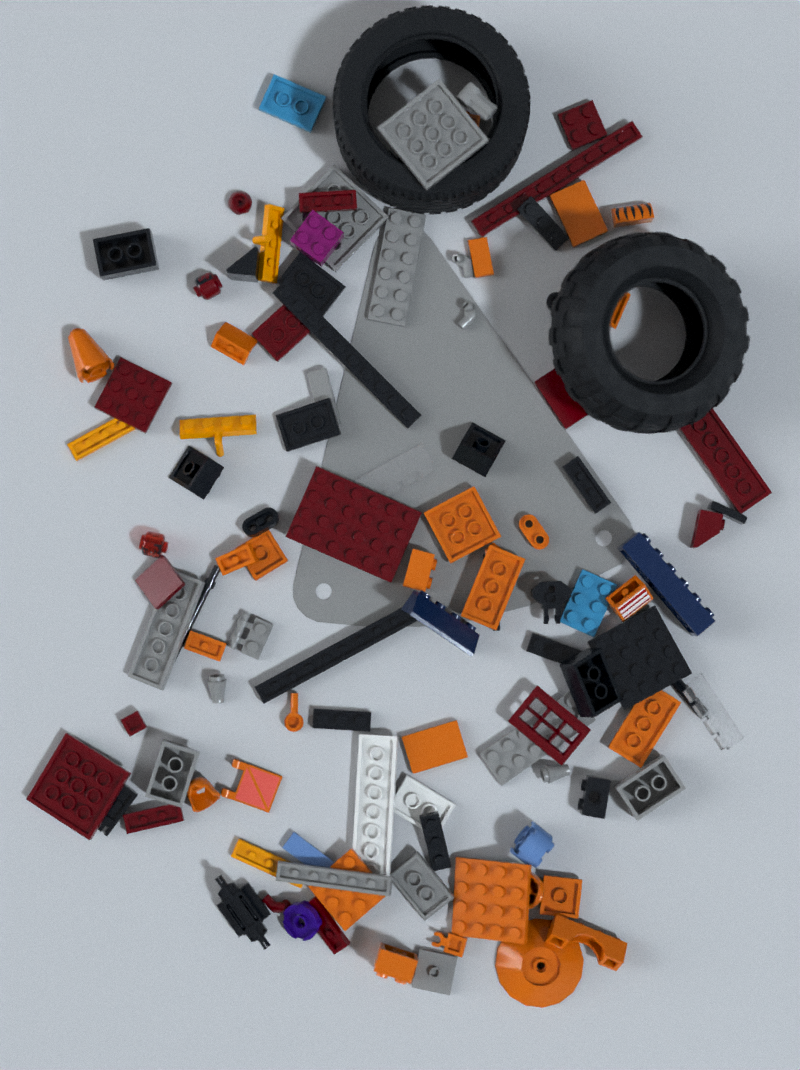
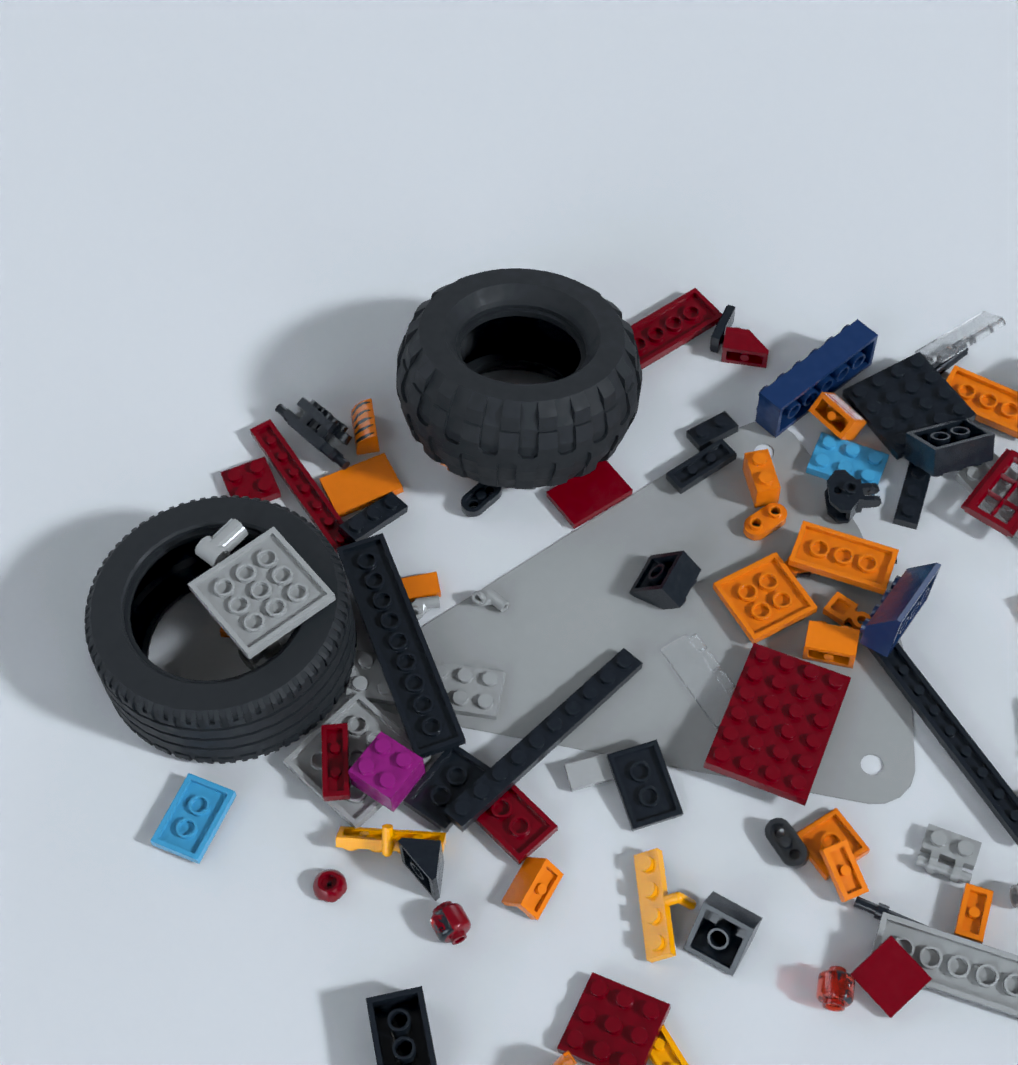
camera: 85 degrees left, 30 degrees down
(425, 245) = (400, 647): none -> black plate
(449, 583) = (844, 610): none -> orange plate
(570, 531) = (761, 478): none -> orange brick
(623, 497) = (712, 430): none -> black plate
(628, 176) = (325, 436): none -> black piece

